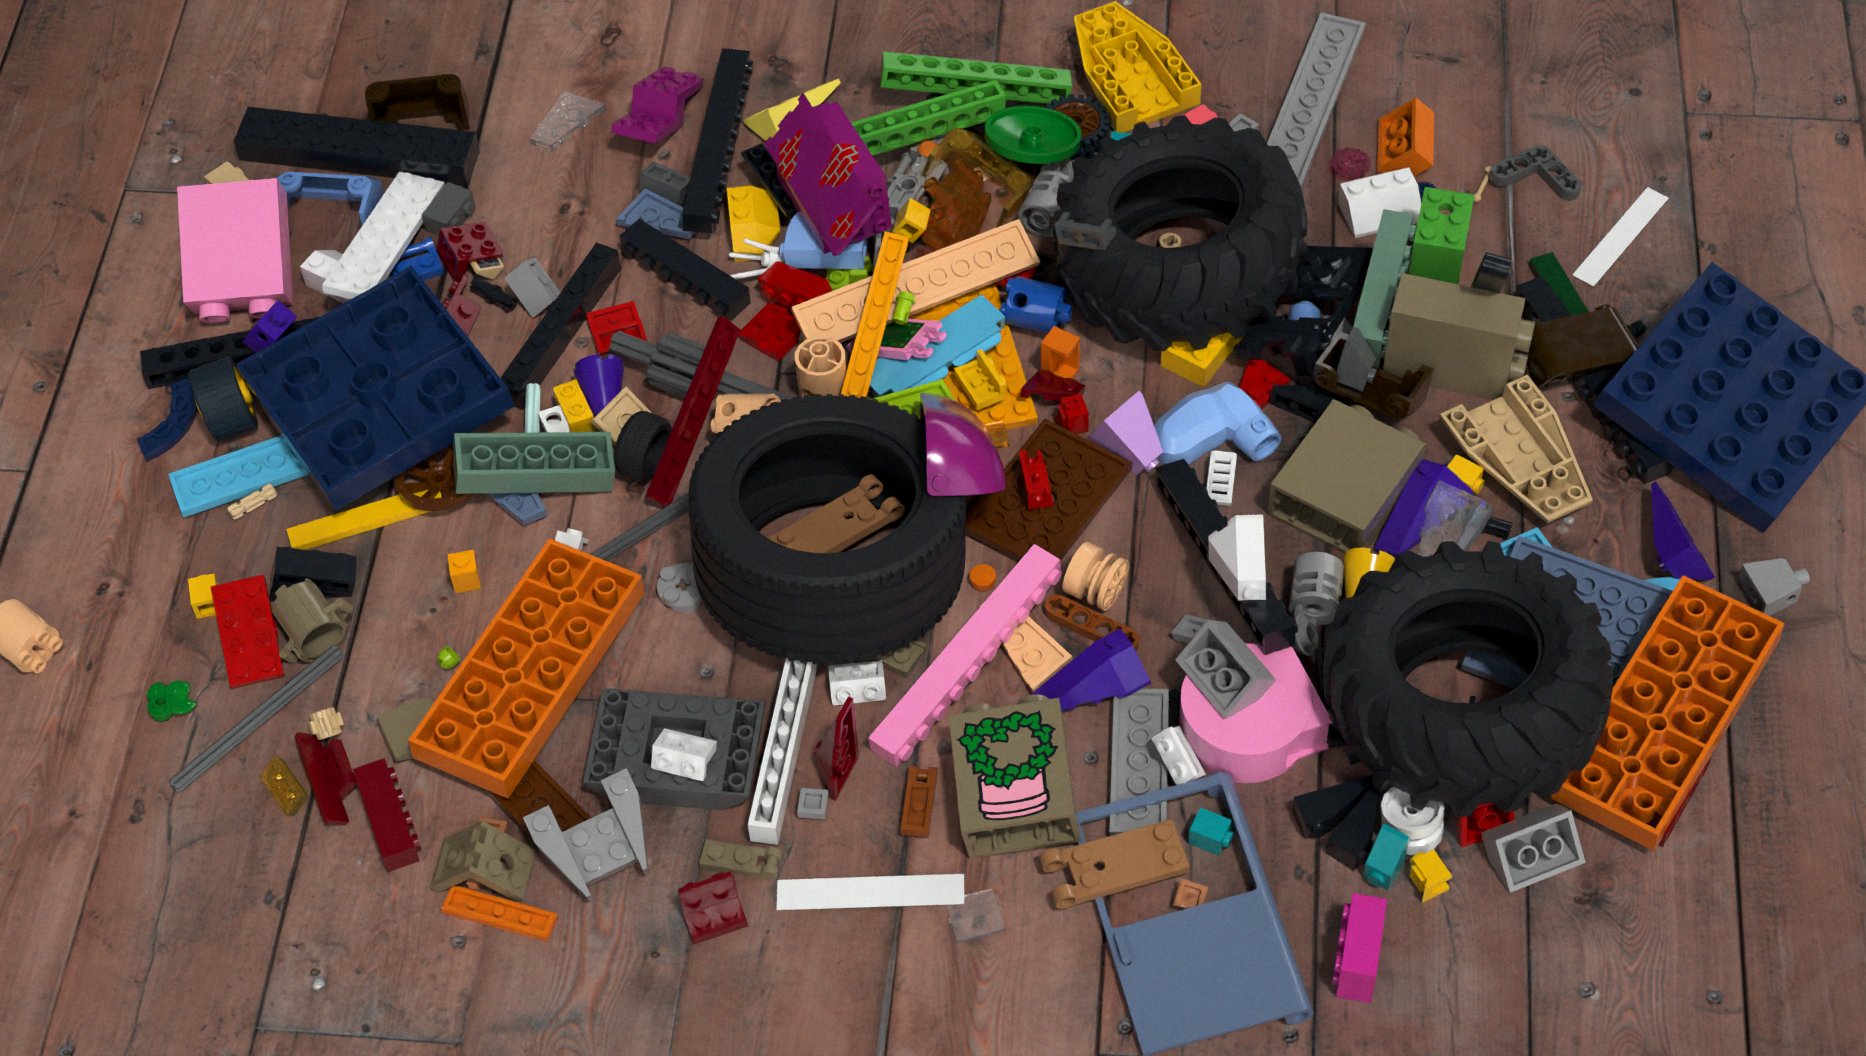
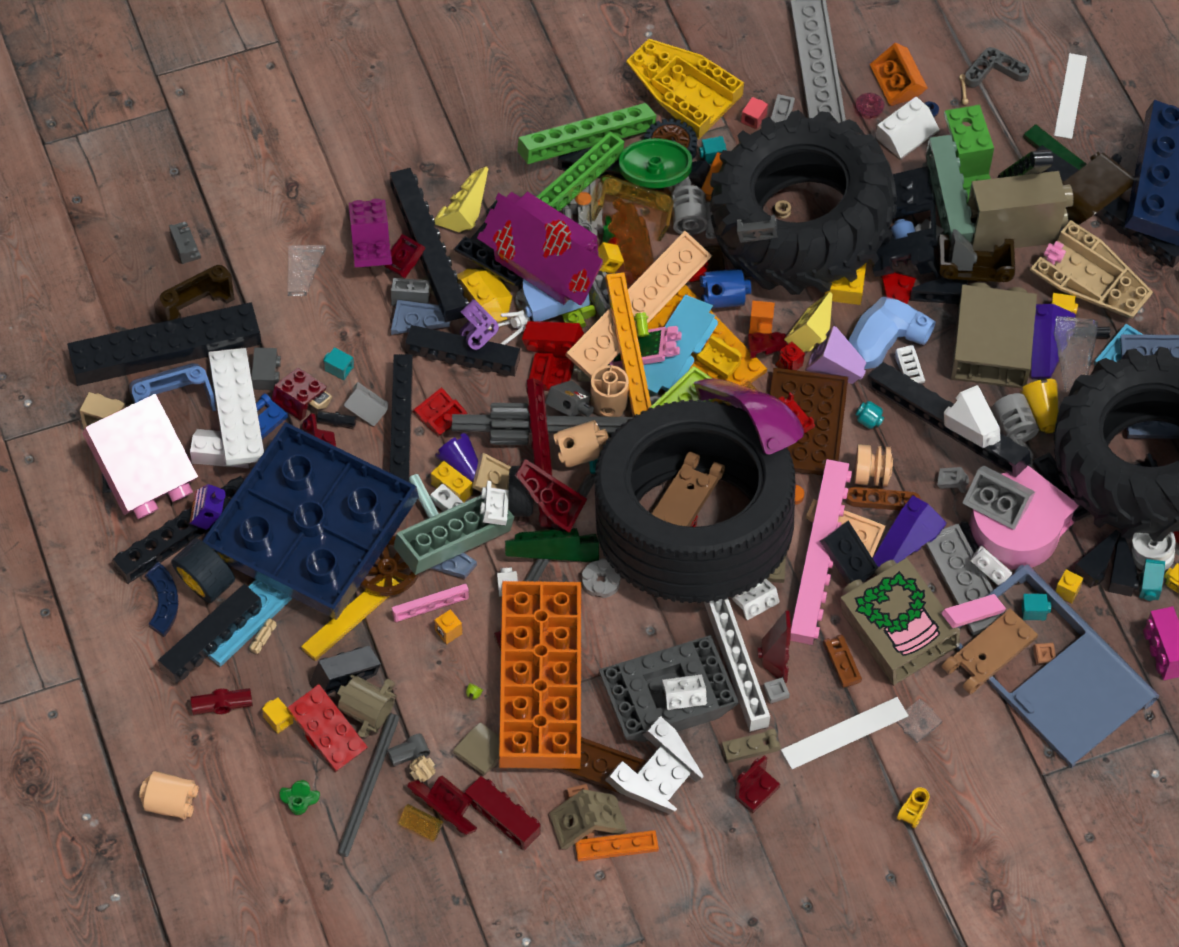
camera: 30 degrees left, 5 degrees up
(155, 555) = (221, 701): none -> dark red piece
(186, 472) = (210, 634): none -> black brick
(323, 696) = (411, 749): none -> dark grey piece
(451, 49) = (184, 242): none -> dark grey hinge
(462, 536) = (430, 603): none -> bright pink tile
(534, 234) = (338, 363): none -> teal brick
(593, 446) = (495, 505): none -> white bracket
(642, 522) = (554, 545): none -> dark green wedge
(662, 455) = (554, 497): none -> dark red wedge
(679, 142) = (404, 255): none -> dark red piece
(712, 230) = (478, 325): none -> medium lavender piece
(768, 363) = (570, 399): none -> dark grey torso
(893, 1024) = (913, 810): none -> yellow piece
(999, 667) = (849, 553): none -> black tile
(1112, 386) = (812, 325): none -> light yellow slope
(1112, 799) = (973, 611): none -> bright pink tile
(1132, 516) = (869, 414): none -> teal head
(1270, 823) = (1069, 586): none -> yellow brick
(1483, 406) = (1054, 253): none -> bright pink gear

